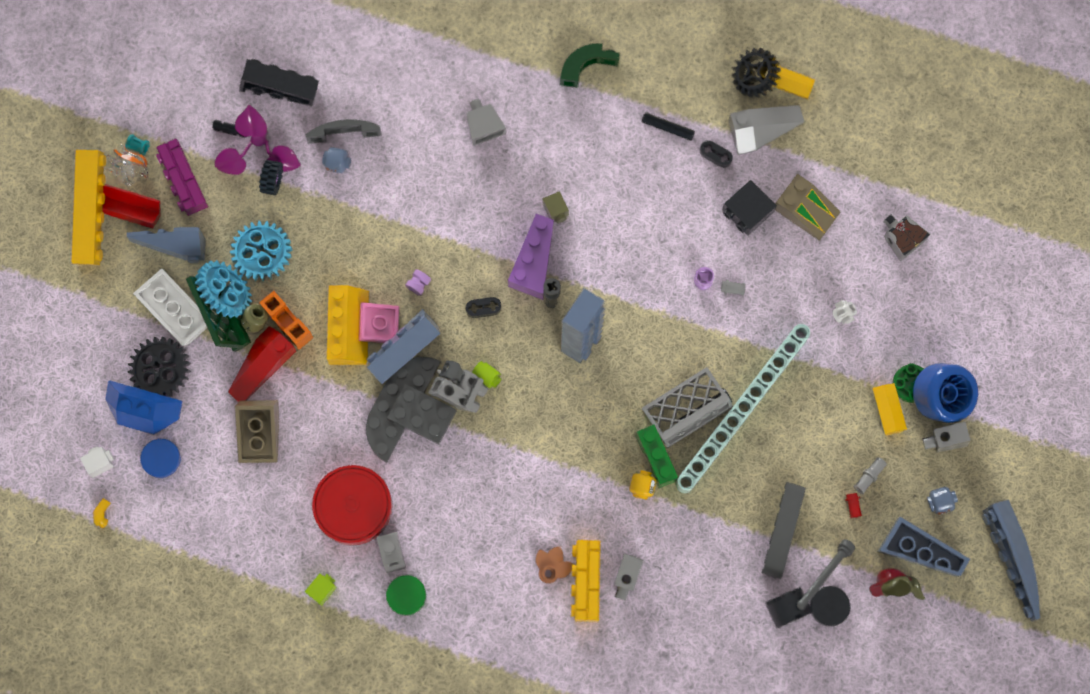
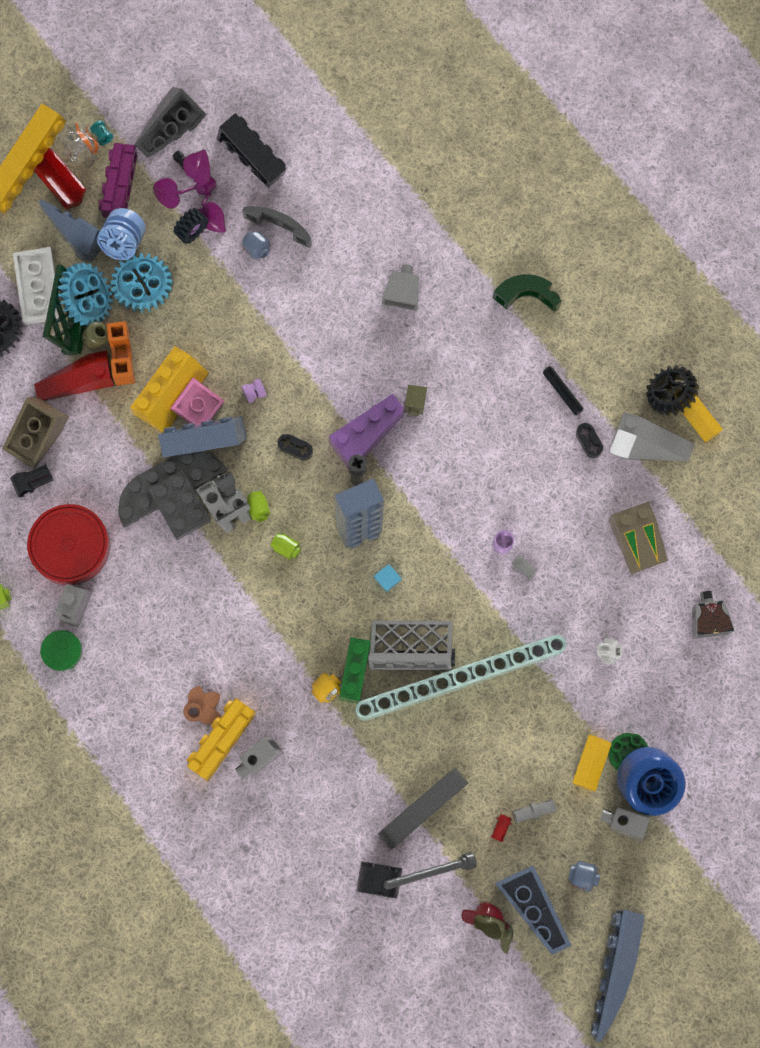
camera: 30 degrees right, 0 degrees up
(190, 97) = (169, 122): none -> dark grey wedge
(218, 219) = (121, 234): none -> light blue wheel
(281, 475) = (28, 481): none -> black piece
(532, 392) = (286, 546): none -> lime brick
(630, 366) = (387, 578): none -> medium azure tile
(748, 208) = (585, 505): black piece -> none
(830, 606) = (418, 903): black tile -> none

